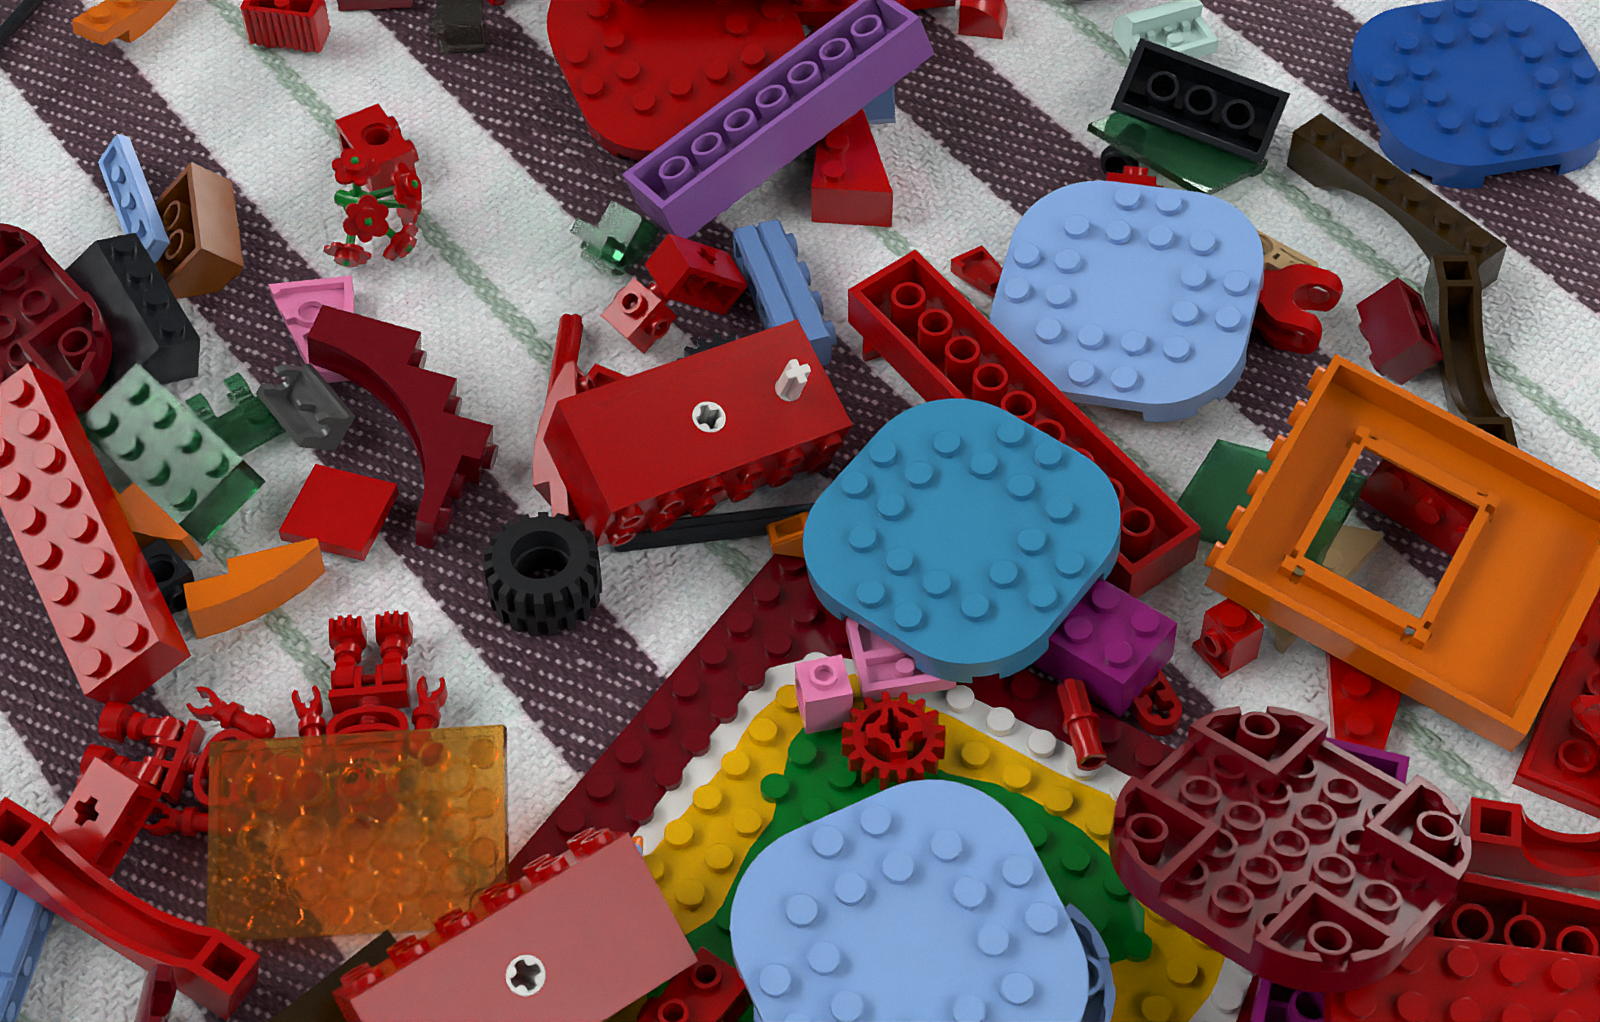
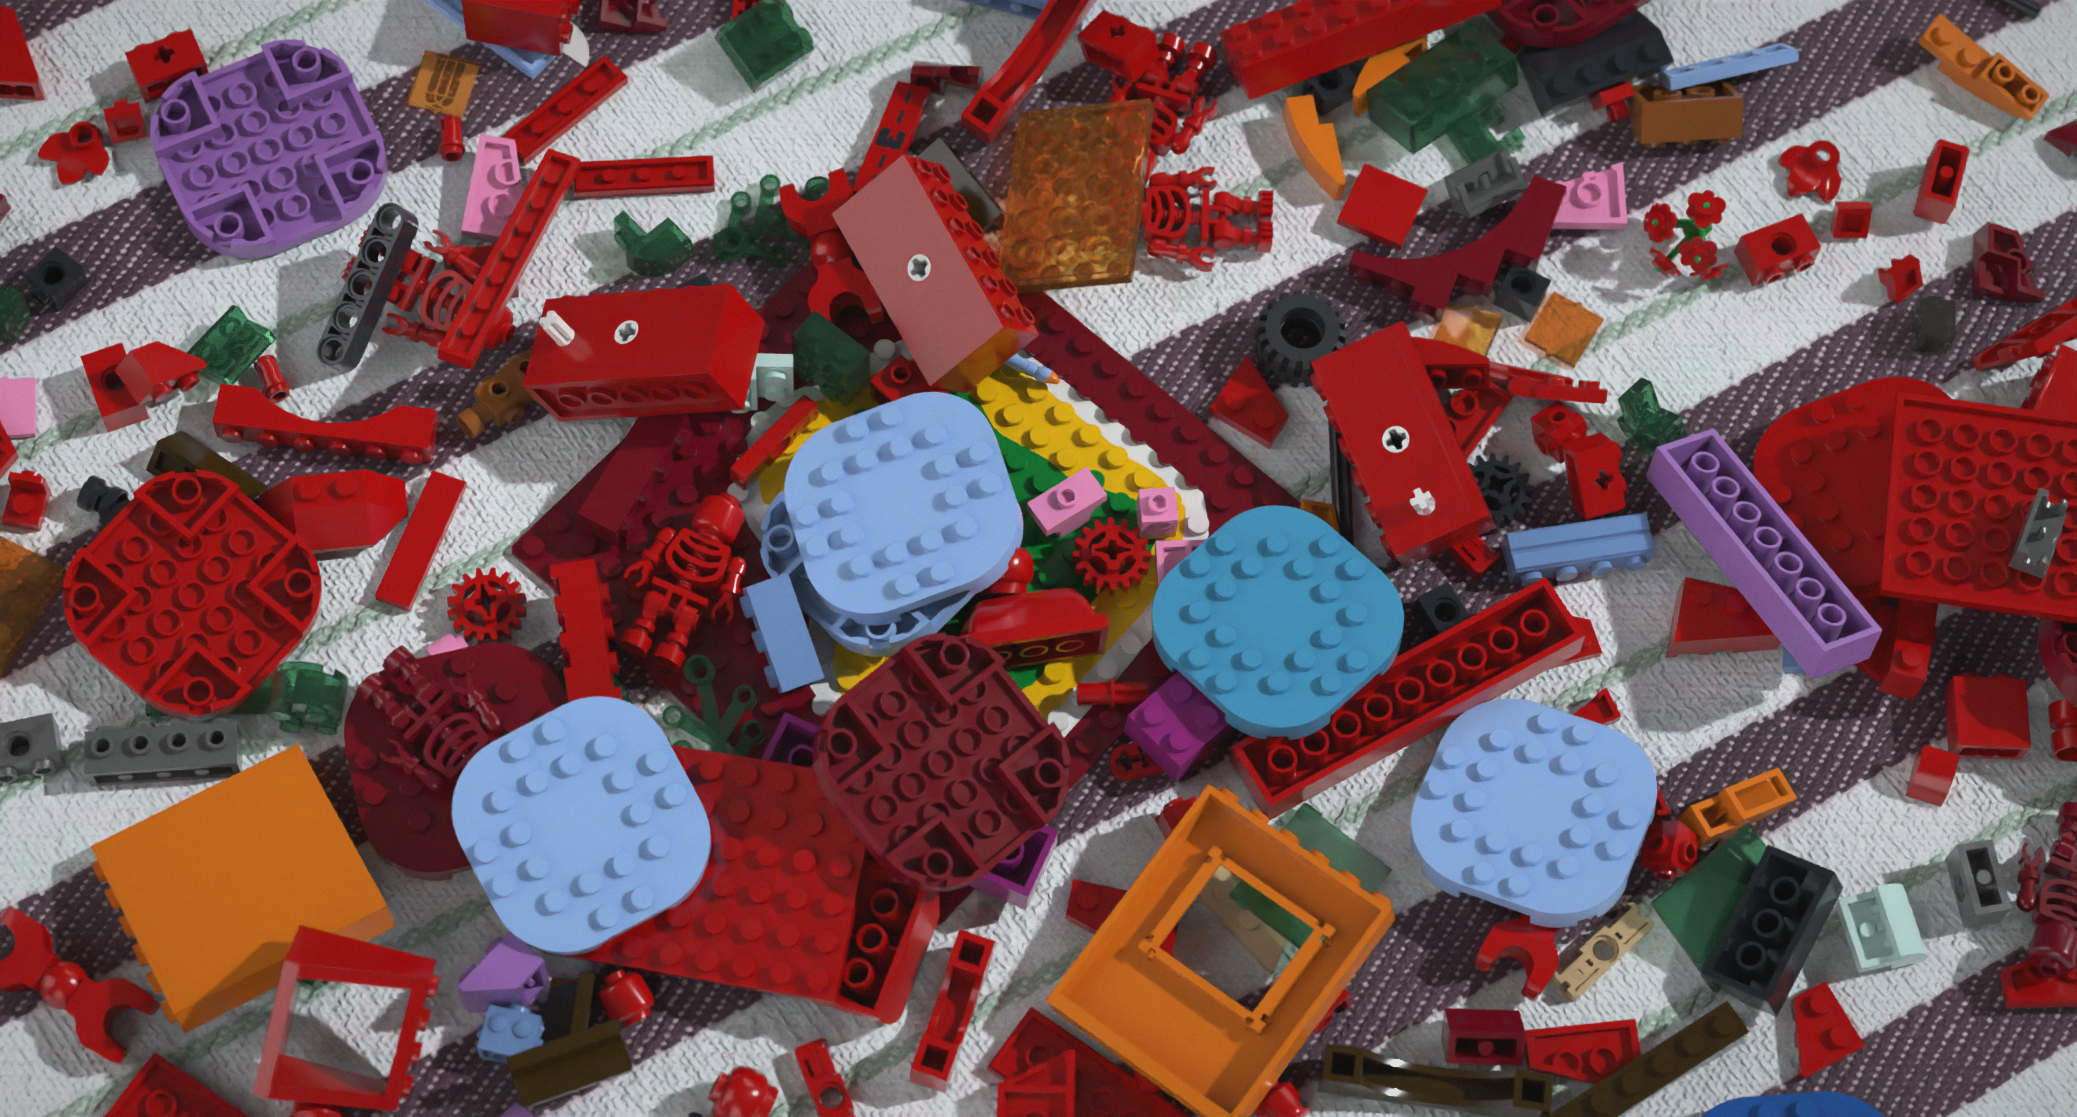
camera: 90 degrees right, 15 degrees up
(186, 293) = (1613, 101): none -> red tile
(271, 131) = (1811, 174): none -> red plate
(330, 94) = (1851, 219): none -> red tile
(402, 53) = (1901, 278): none -> red tile
(455, 357) = (1518, 304): none -> black brick
(491, 335) = (1563, 329): none -> clear orange piece
(514, 412) = (1469, 328): none -> clear orange piece
(588, 314) = (1555, 390): none -> red hinge
(635, 629) = (1250, 405): none -> red wing
(824, 781) = (1067, 504): none -> bright pink brick
(886, 401) = (1439, 601): none -> black brick
(1023, 775) = (1038, 627): none -> red windscreen
(1058, 148) = (1737, 805): none -> orange slope
(1293, 76) = (1821, 1031): none -> red wing
(1370, 247) = (1583, 1050): none -> red wing

